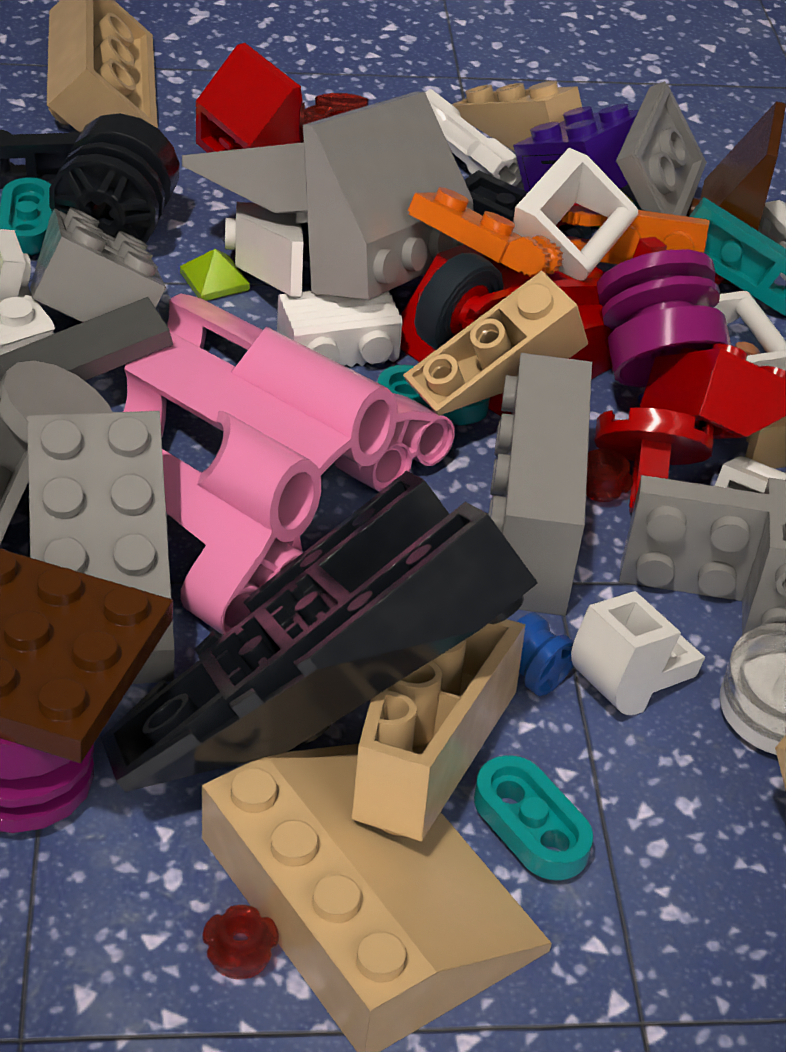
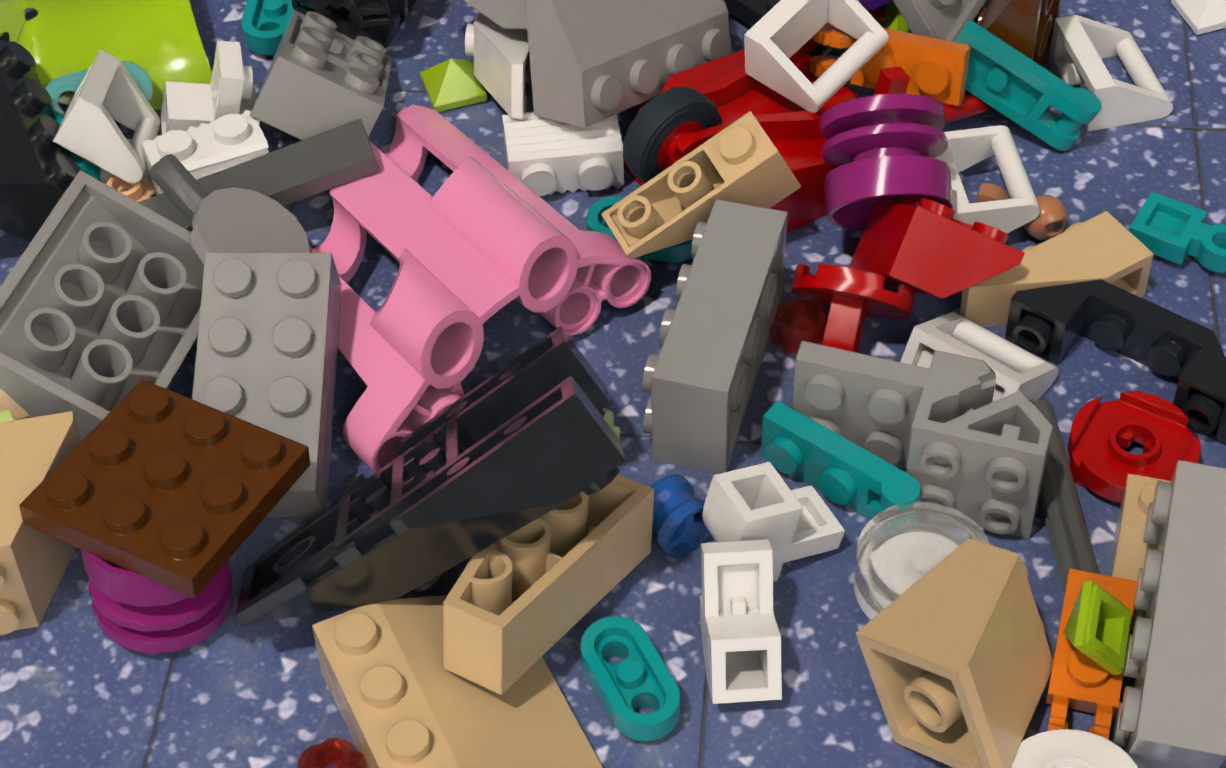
camera: 15 degrees right, 5 degrees up
(487, 234) = (713, 60): orange hinge -> none
(626, 752) = (739, 622): none -> white brick
(686, 598) = (833, 463): none -> teal plate

